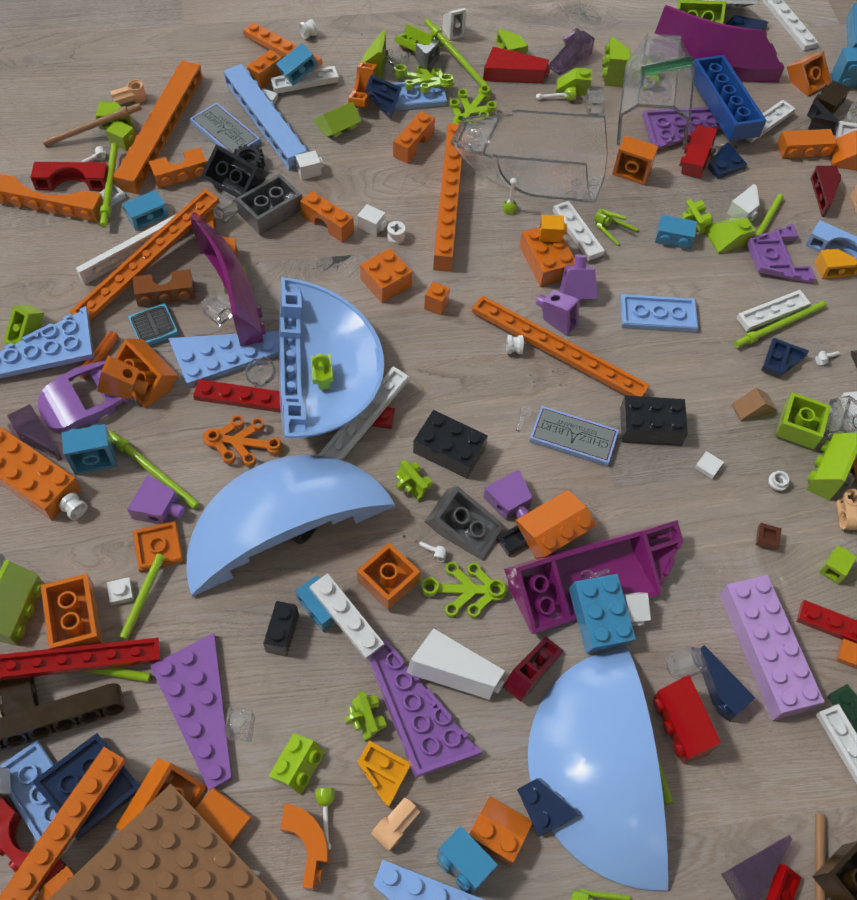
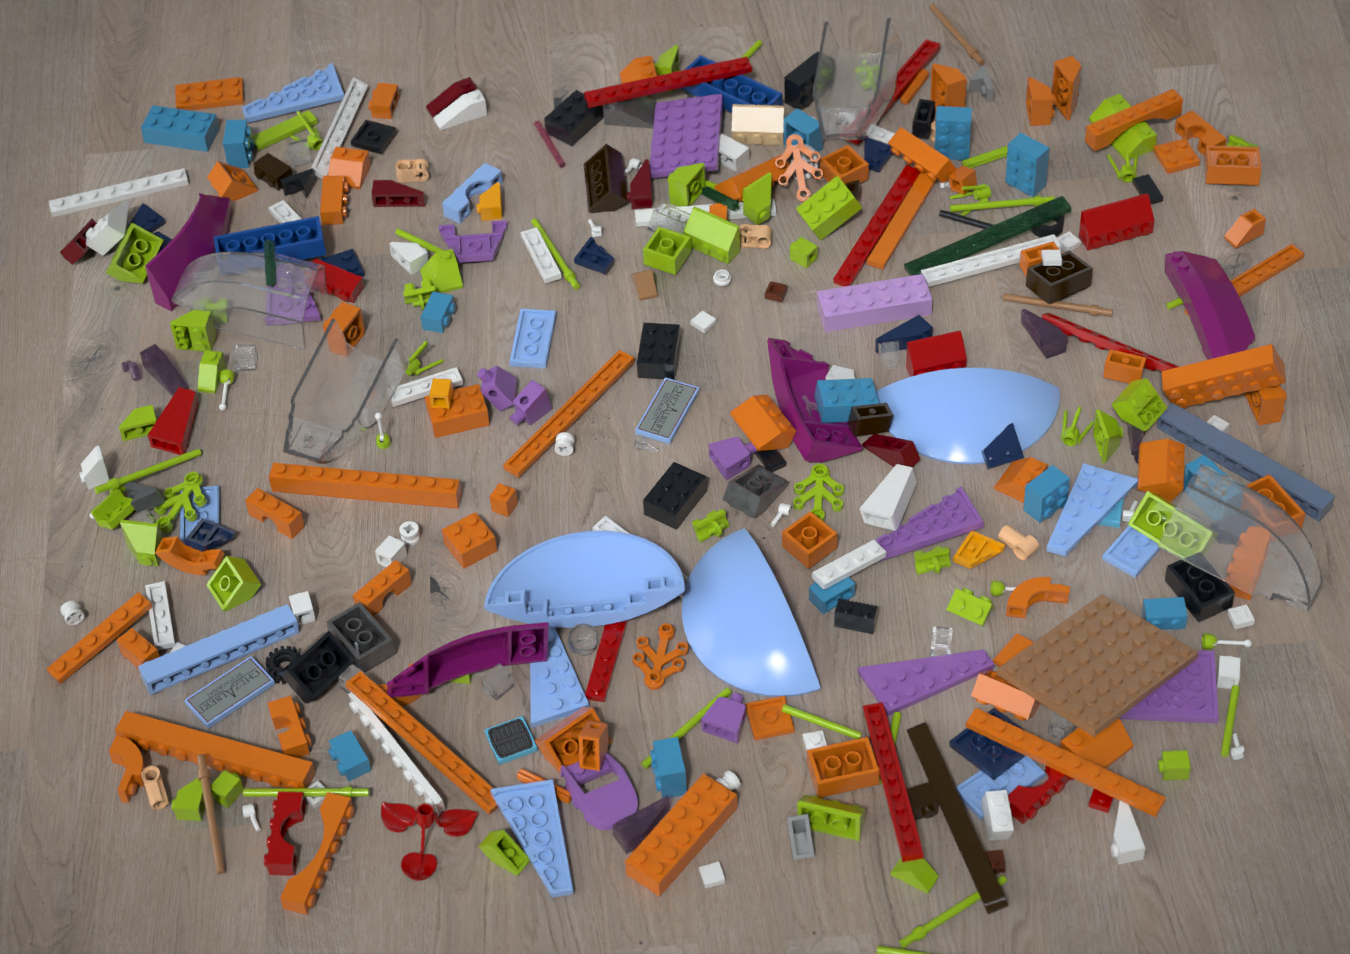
camera: 80 degrees left, 10 degrees down
(65, 292) = (400, 816): none -> red plant
(152, 79) = (128, 755): none -> orange arch
(178, 289) = (464, 715): dark orange arch -> none
(297, 64) = (151, 609): dark azure brick -> none
(322, 370) = (594, 579): lime hips -> none
(484, 94) = (251, 475): lime plant -> none
(573, 639) = (870, 419): none -> dark brown brick

